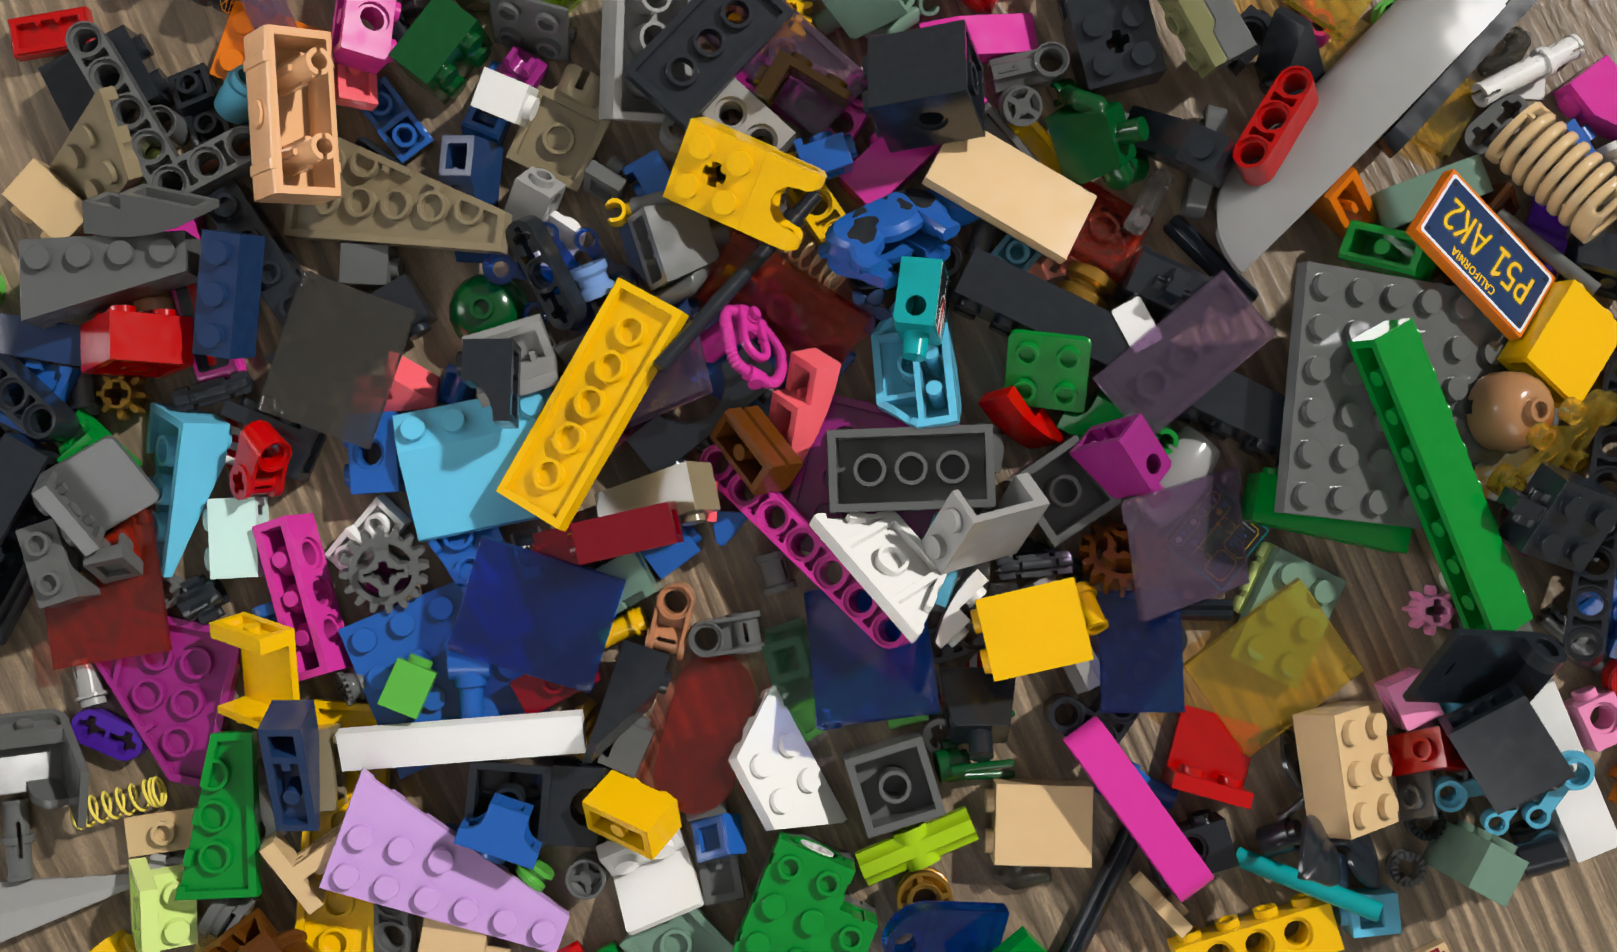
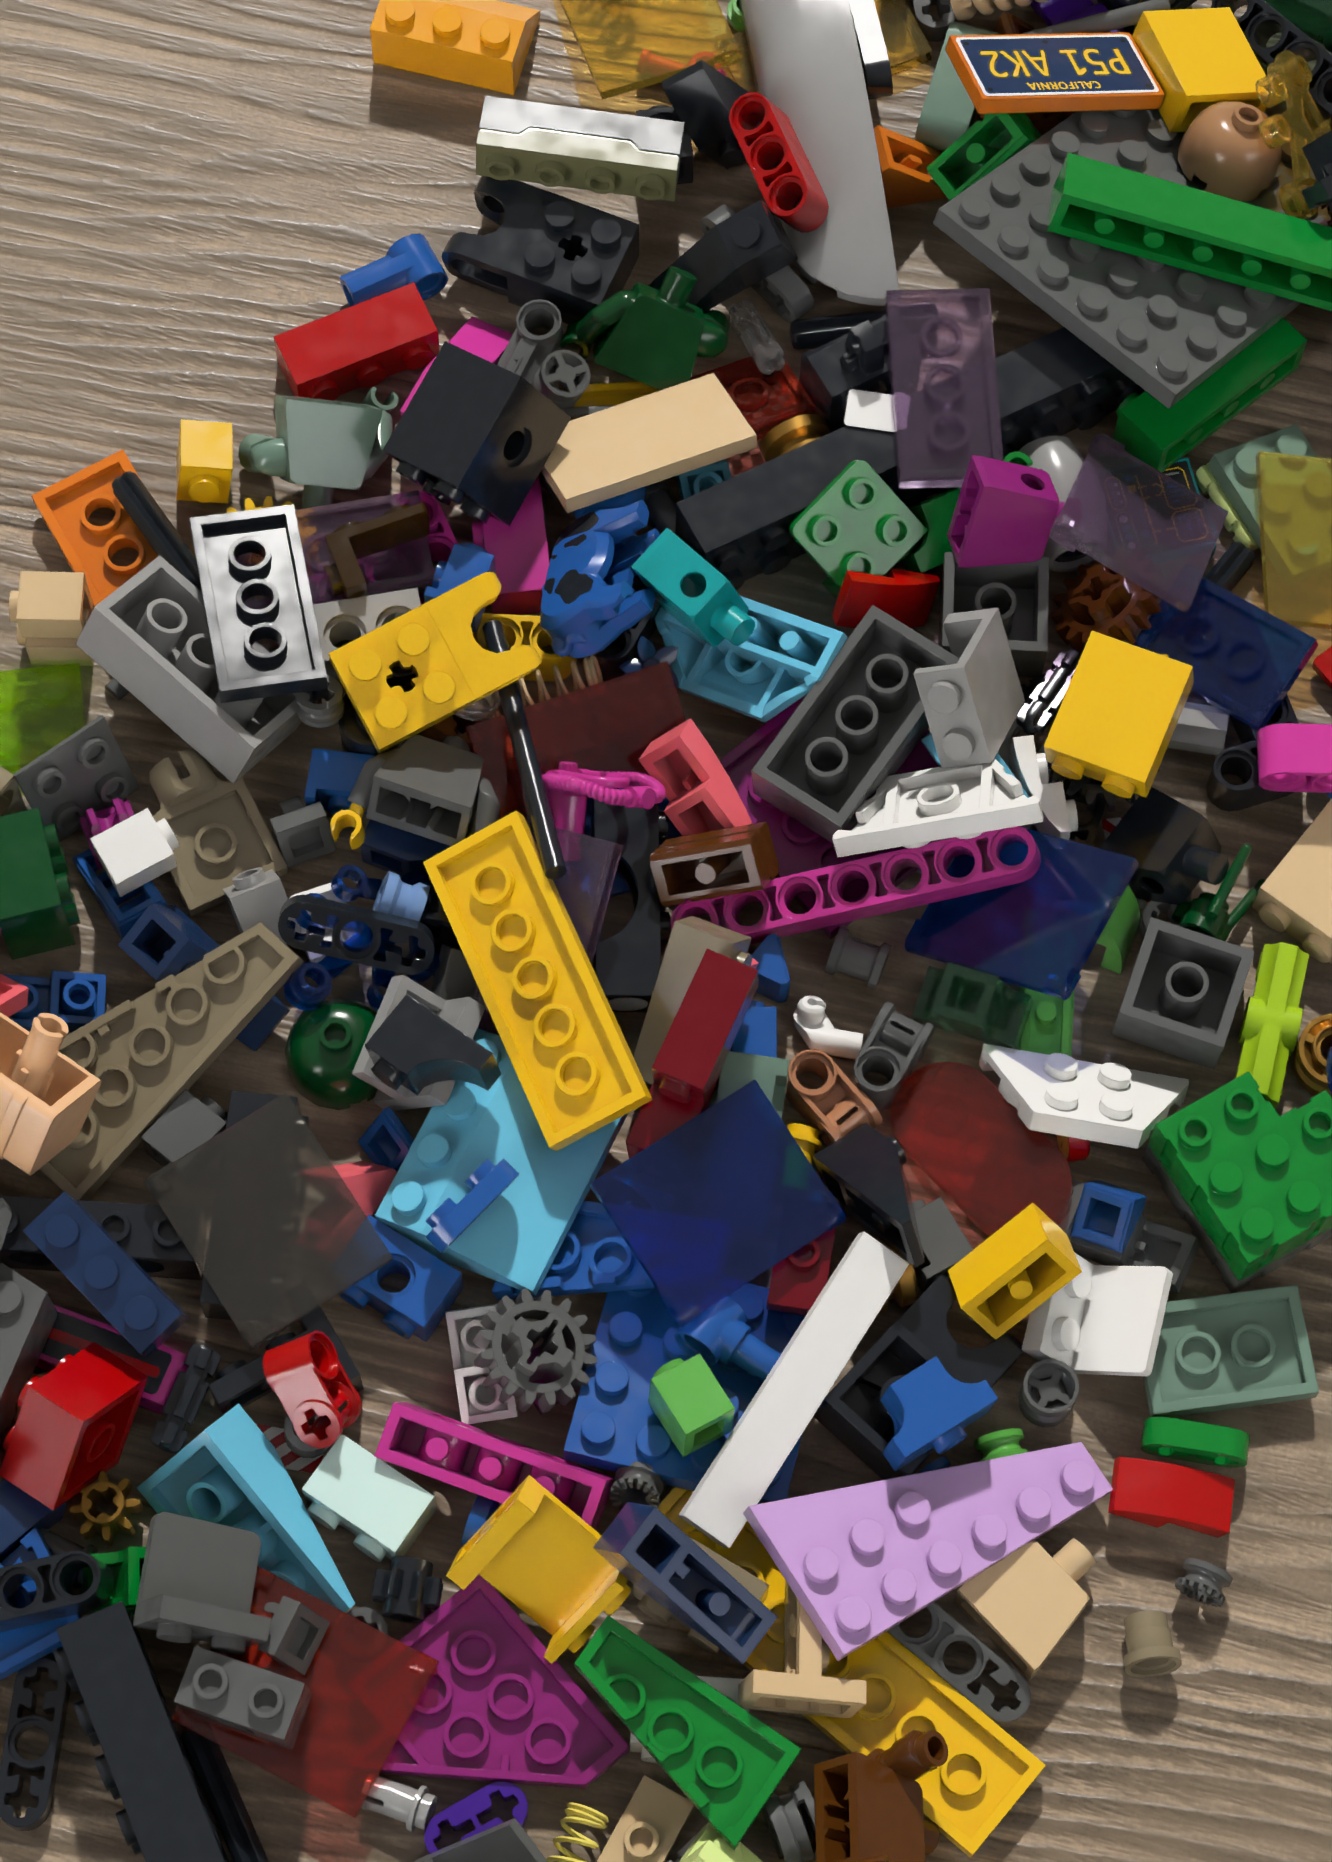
camera: 55 degrees left, 20 degrees down
(409, 469) = (453, 1219): none -> blue plate
(713, 584) = (820, 1033): none -> white arm

